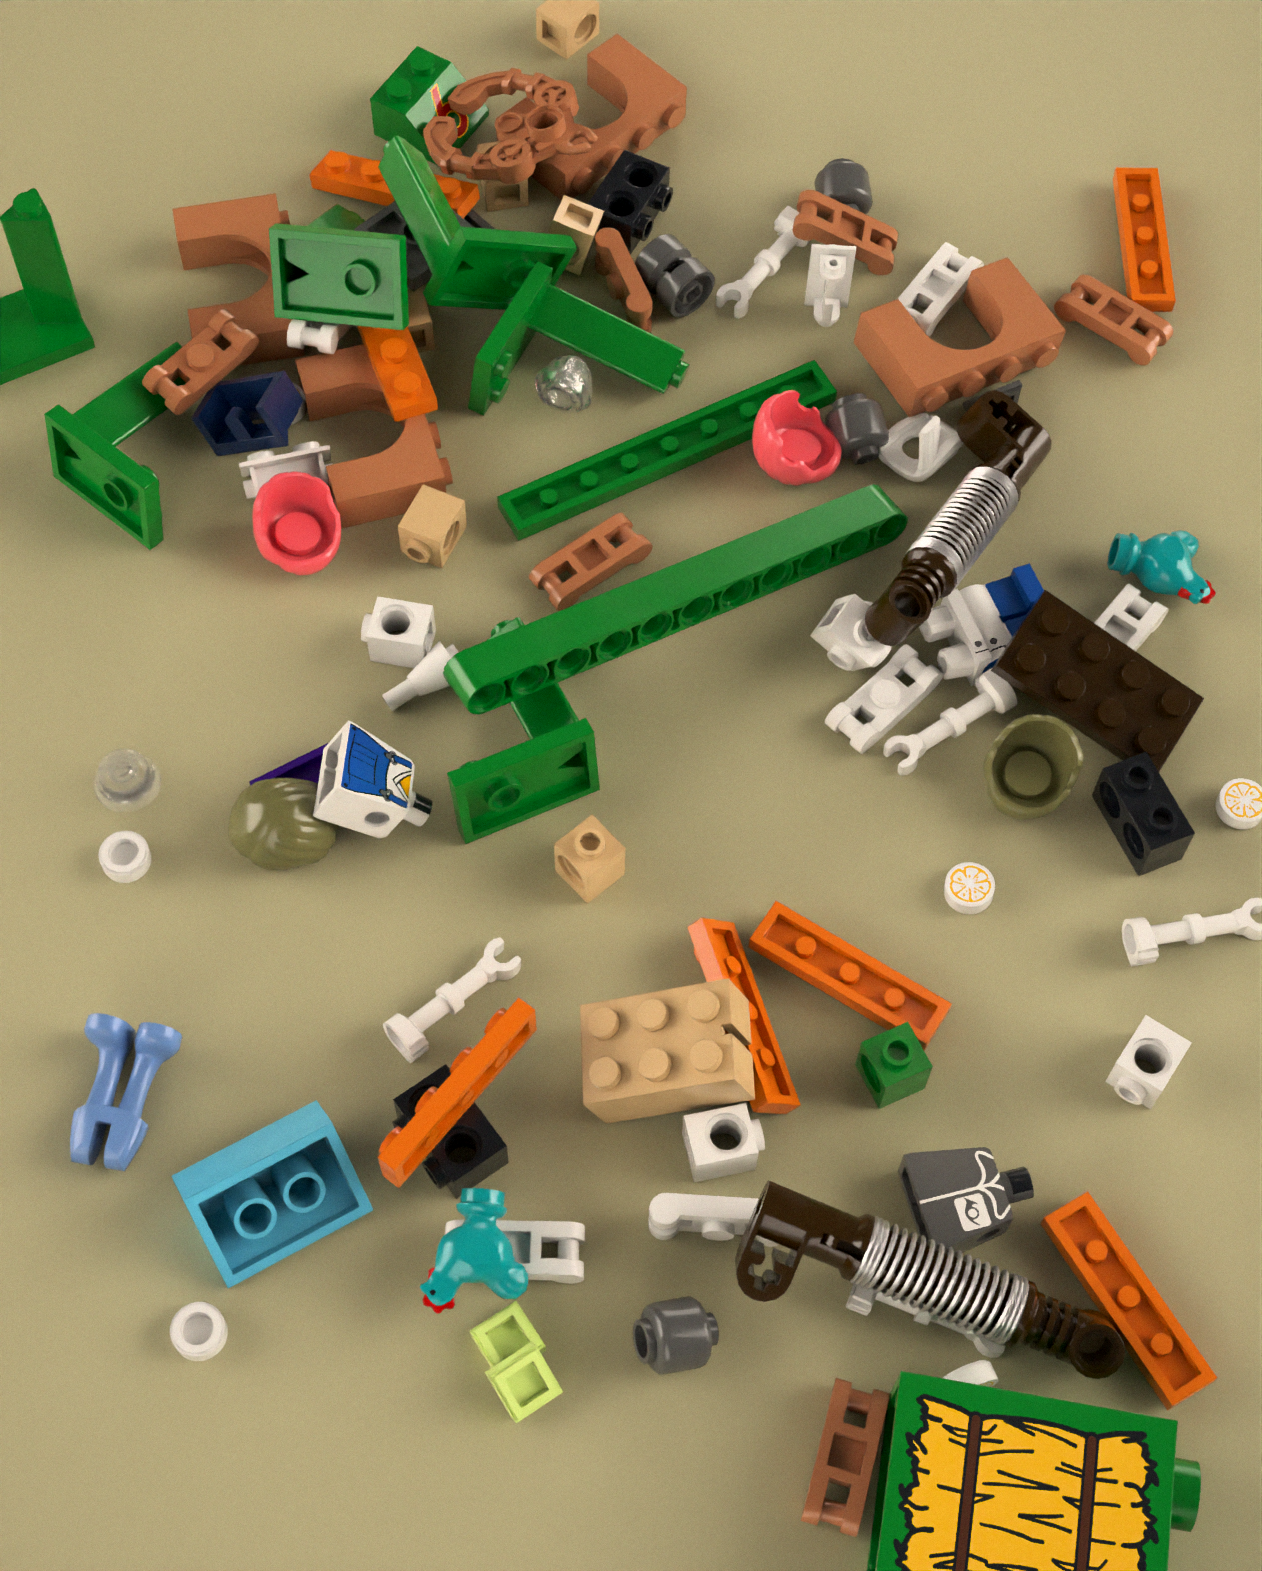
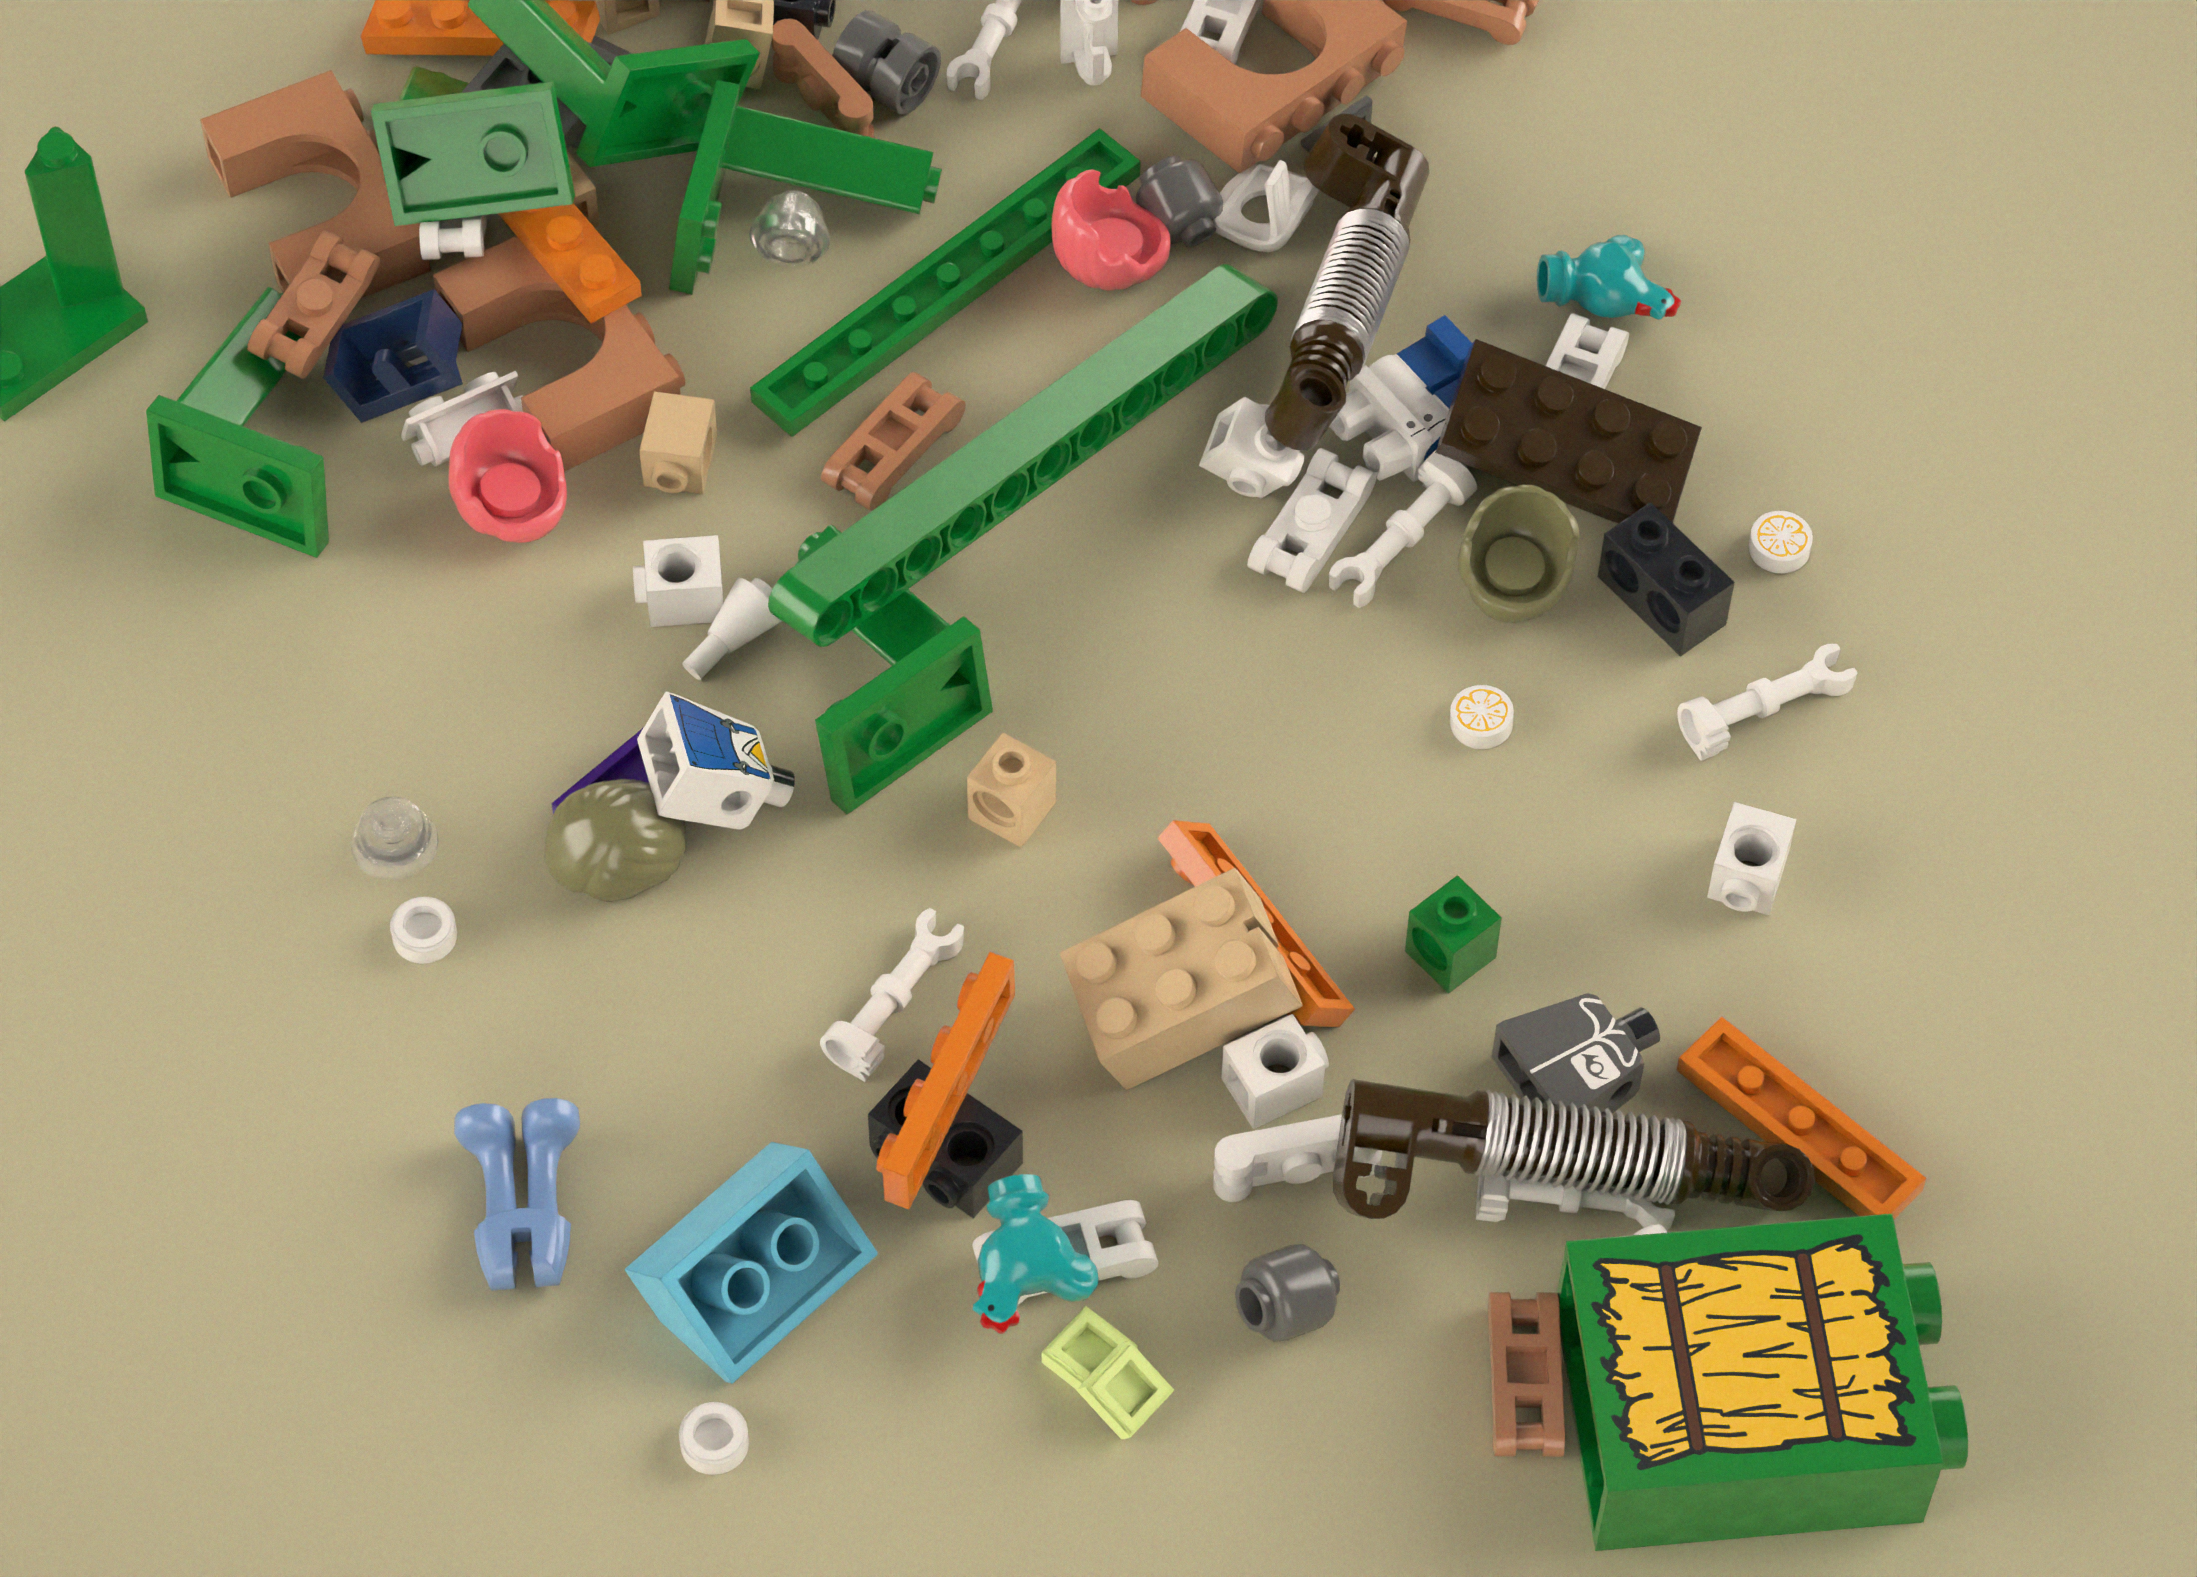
camera: 15 degrees left, 5 degrees down
(847, 973) = (1362, 845): orange plate -> none

